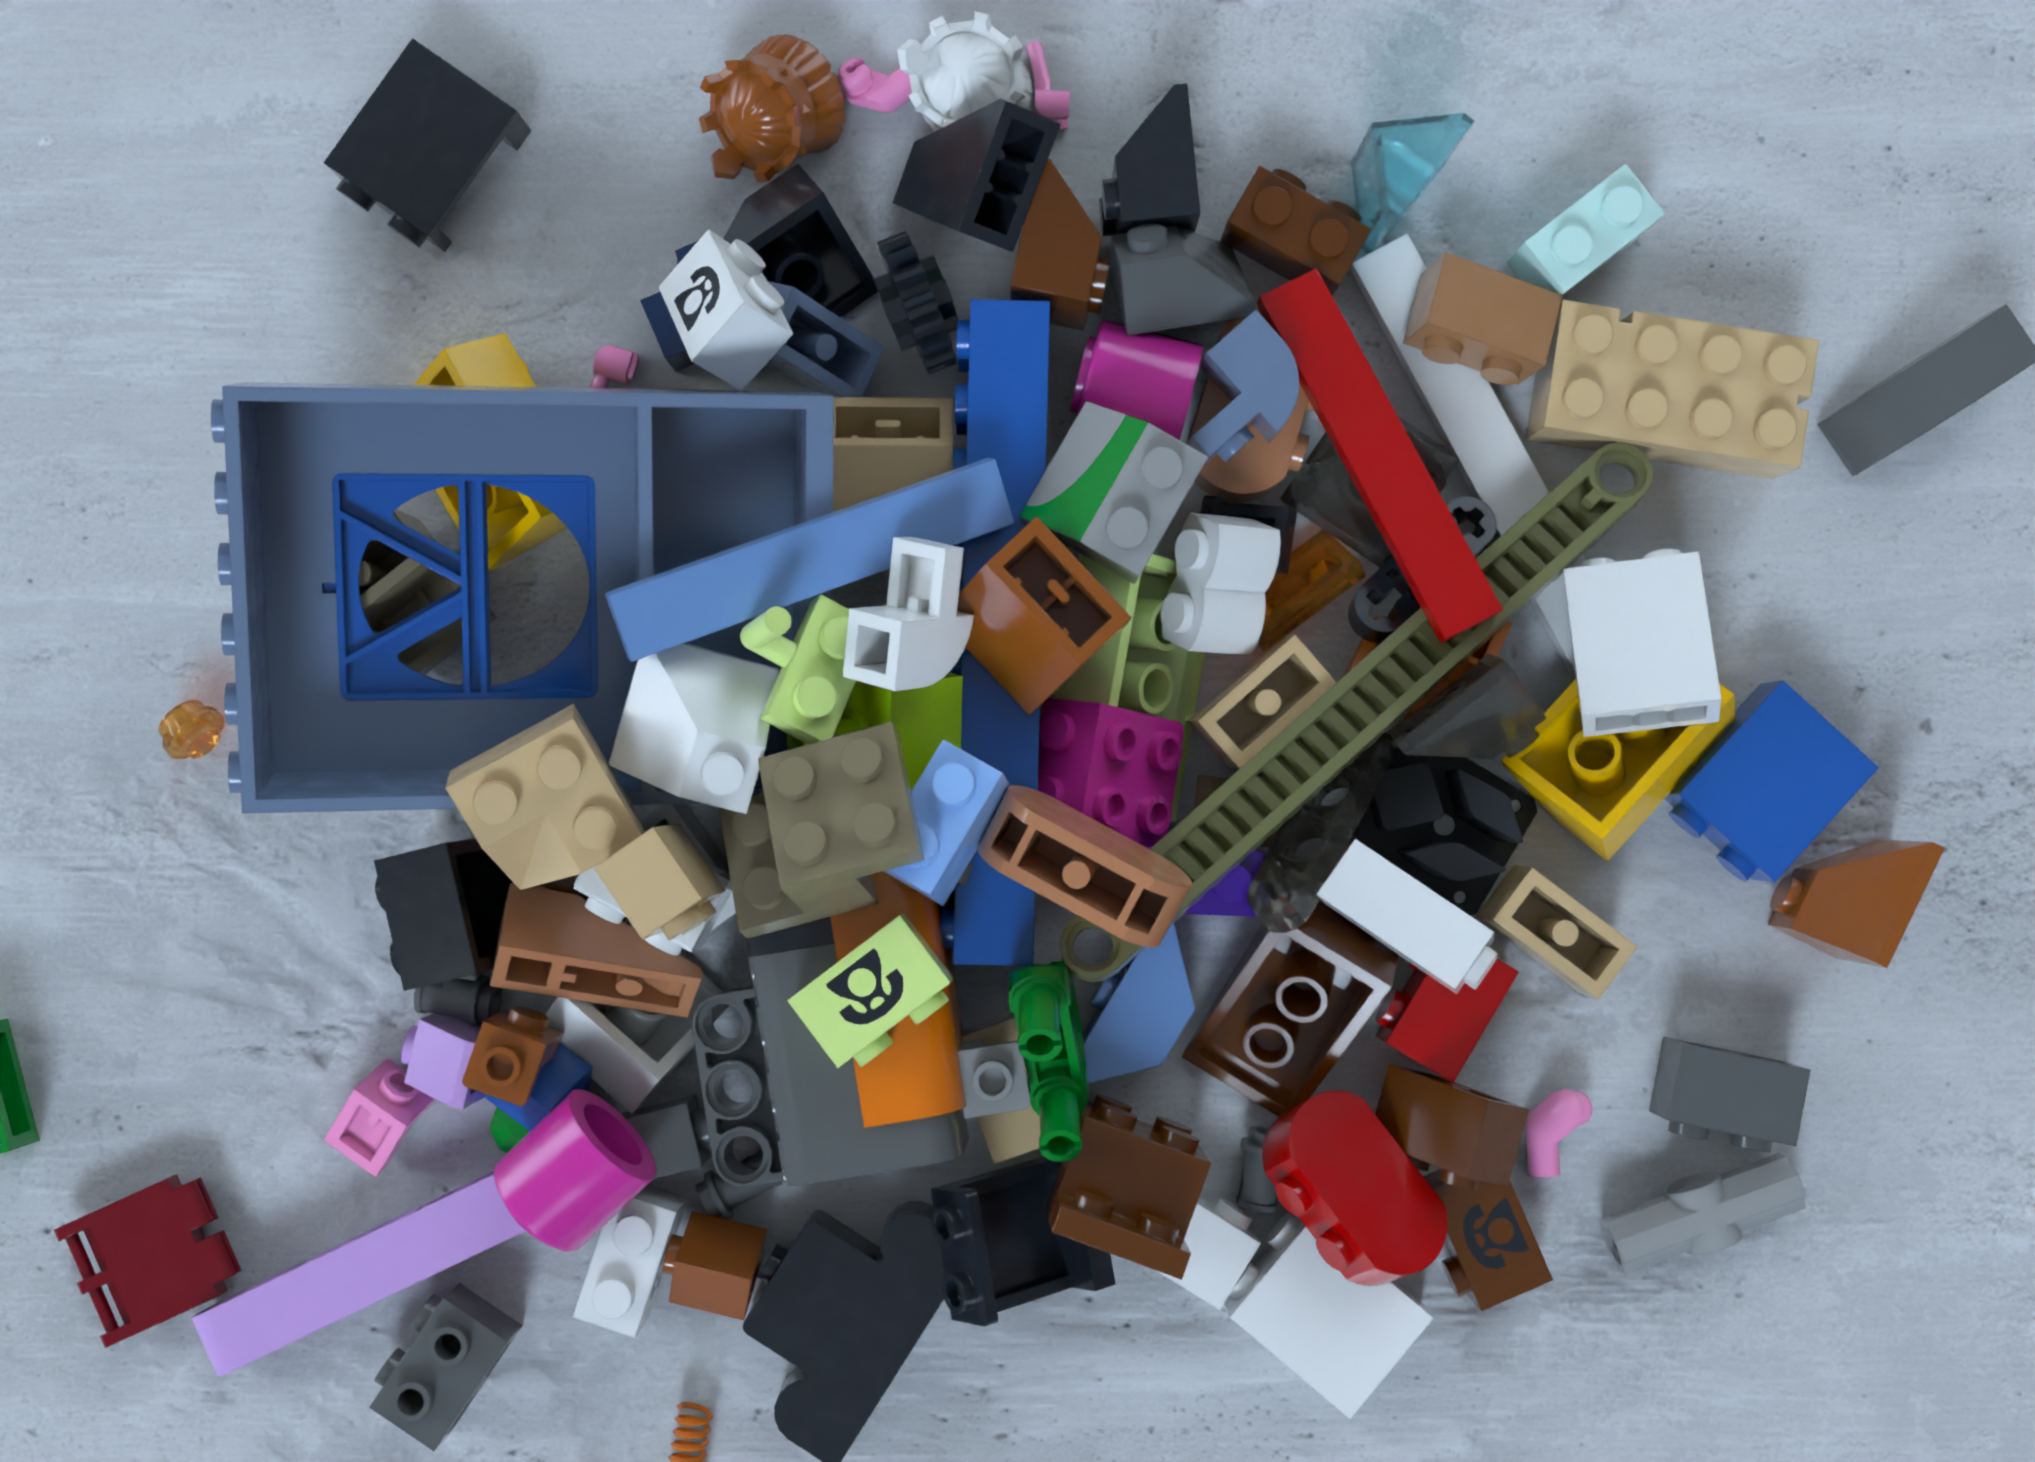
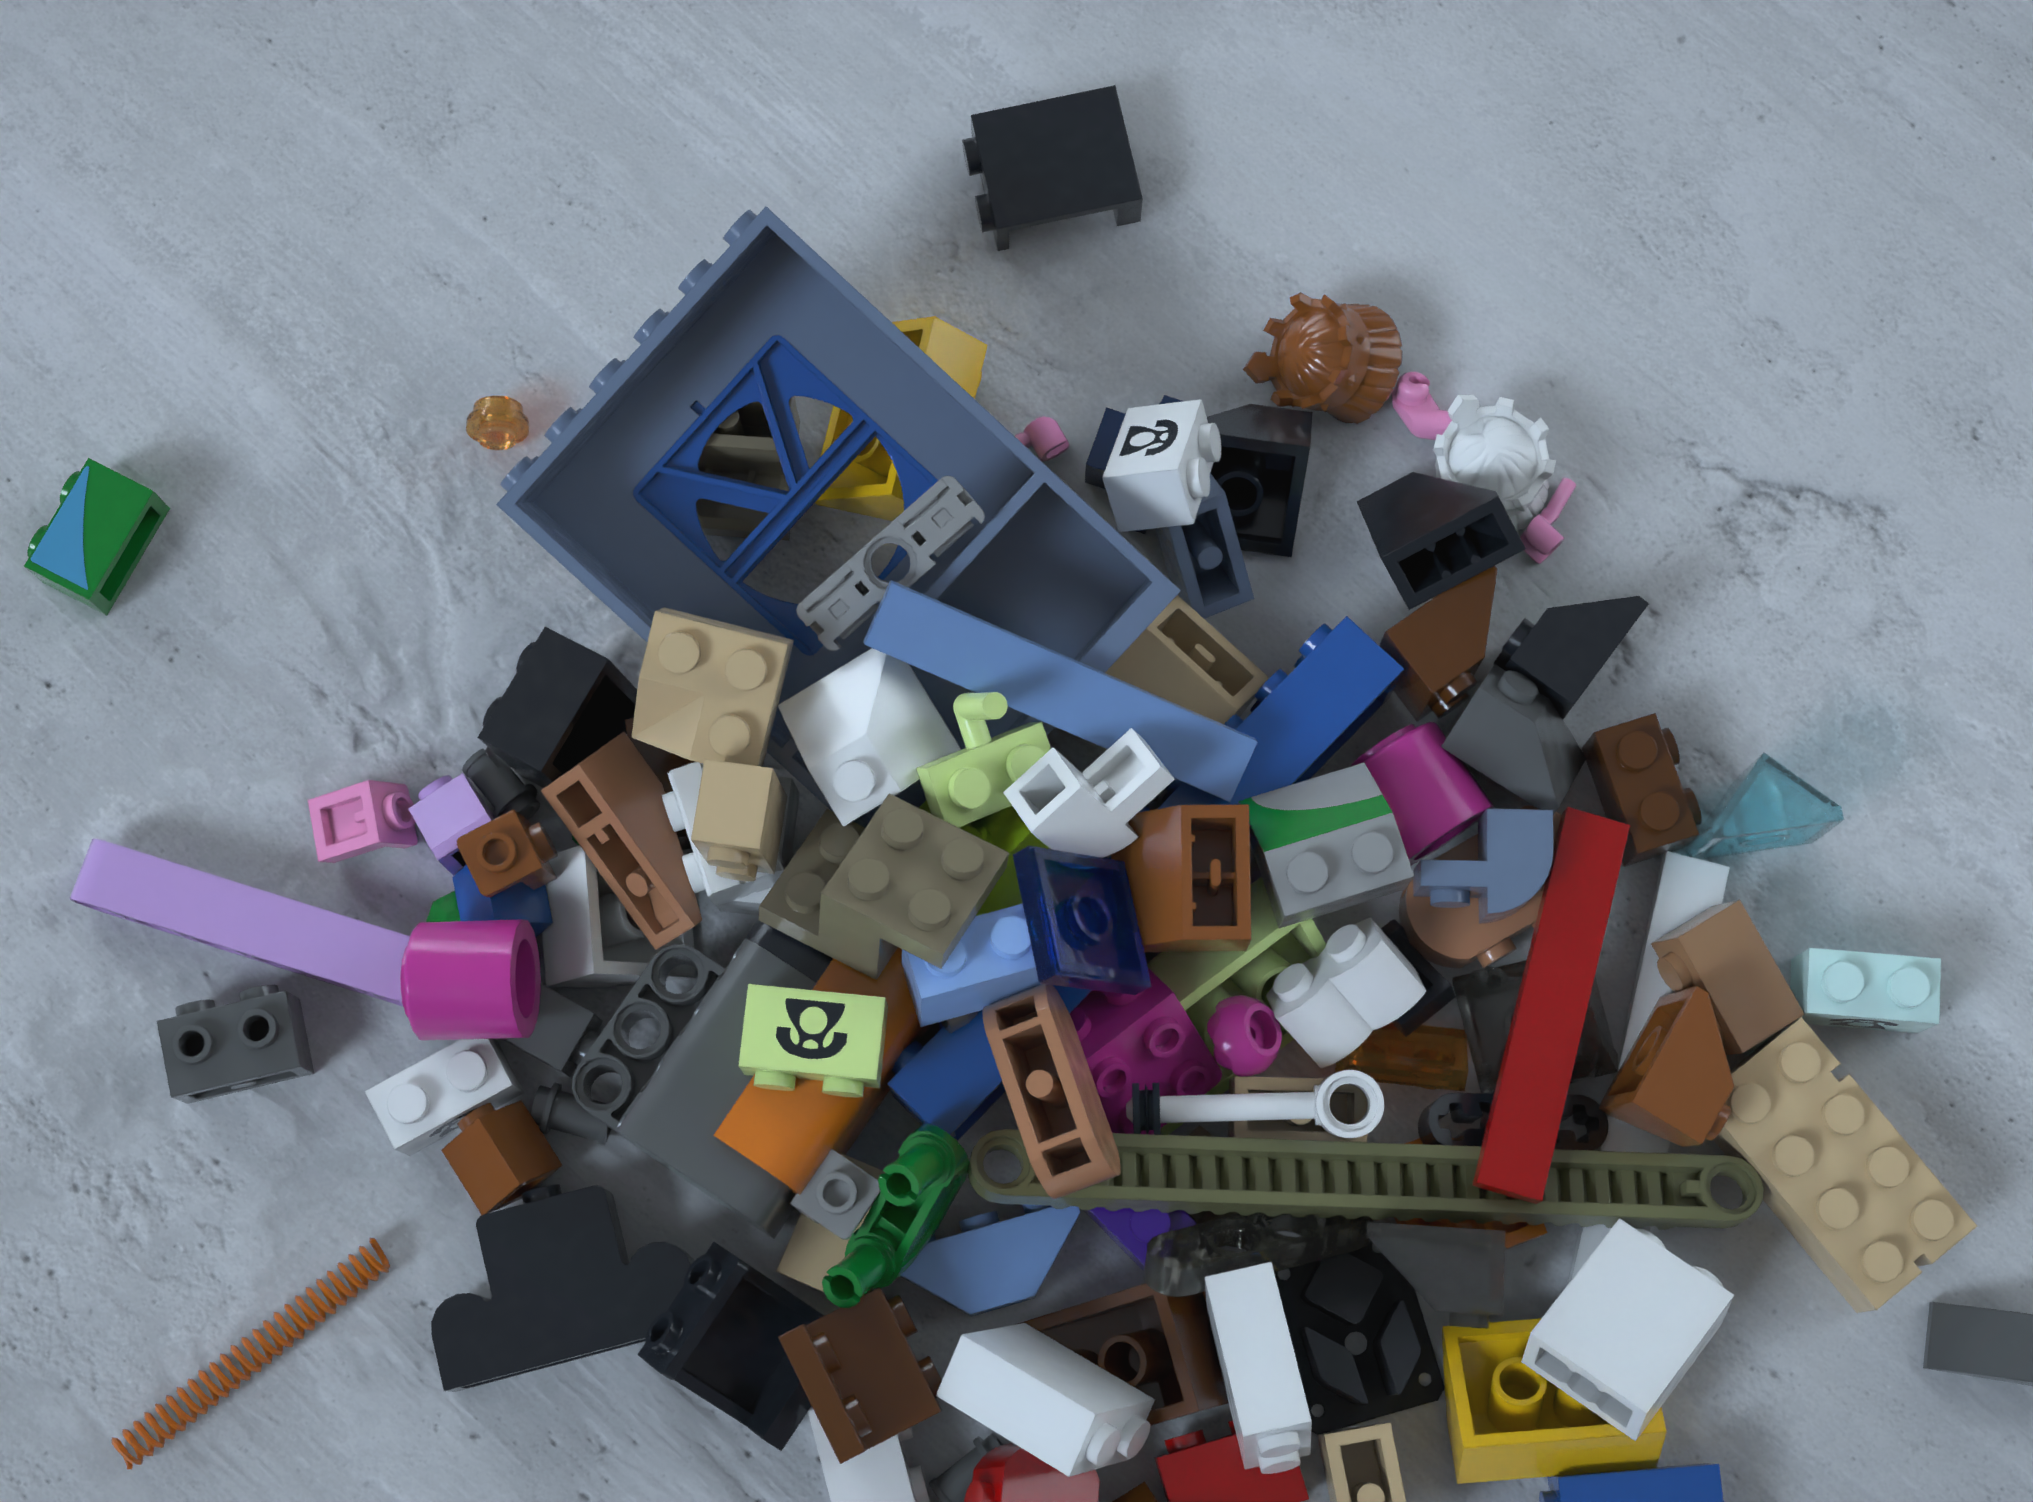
camera: 45 degrees right, 10 degrees down
(151, 1256) = (106, 769): dark red plate -> none
(591, 531) = (922, 529): none -> light grey piece
(917, 302) = (1307, 586): black gear -> none
(991, 721) = (1081, 921): none -> clear blue tile
(1161, 804) = (1149, 1109): none -> white piece
(1177, 684) = (1244, 1035): none -> dark pink plate
(1276, 1080) = (1046, 1398): none -> white brick
(1510, 424) = (1675, 1073): none -> dark orange slope

